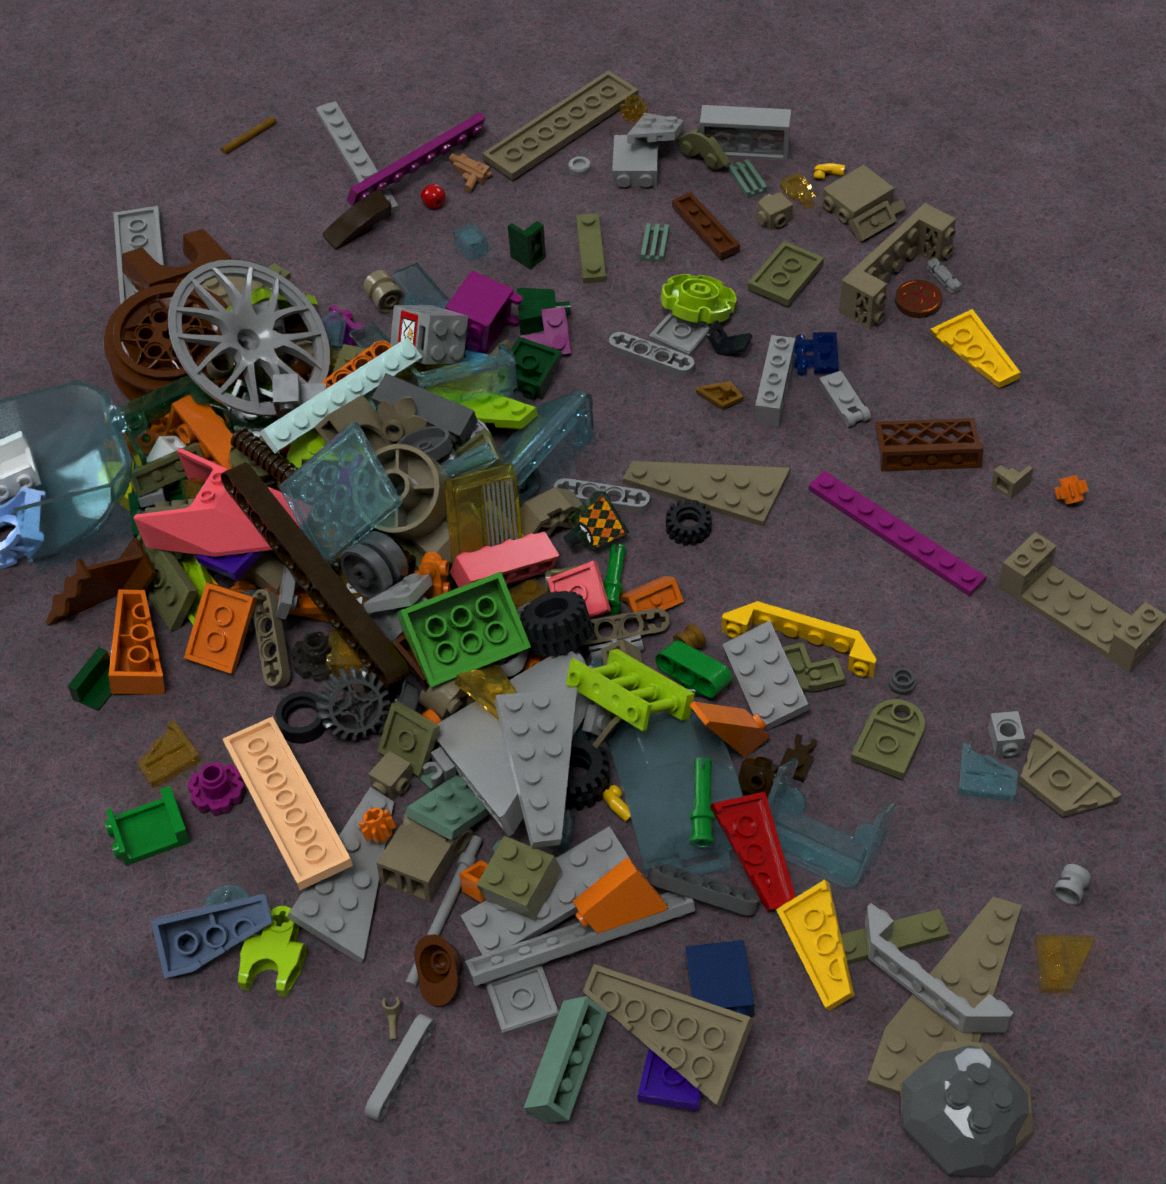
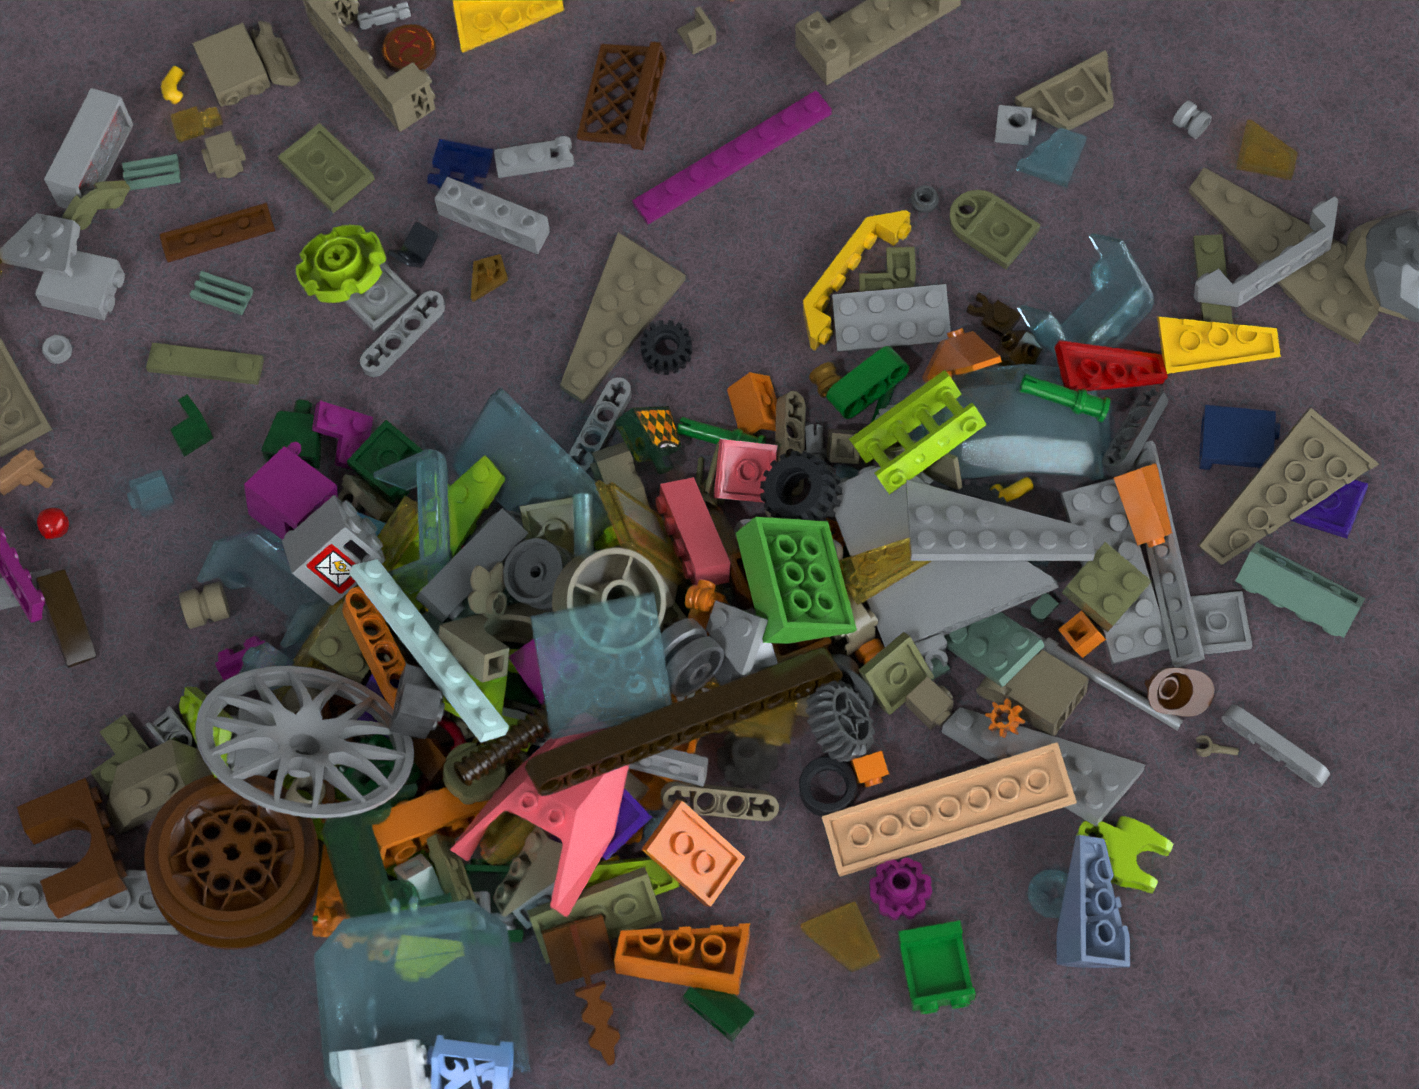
camera: 75 degrees left, 15 degrees up
(321, 742) = (869, 769): none -> orange plate

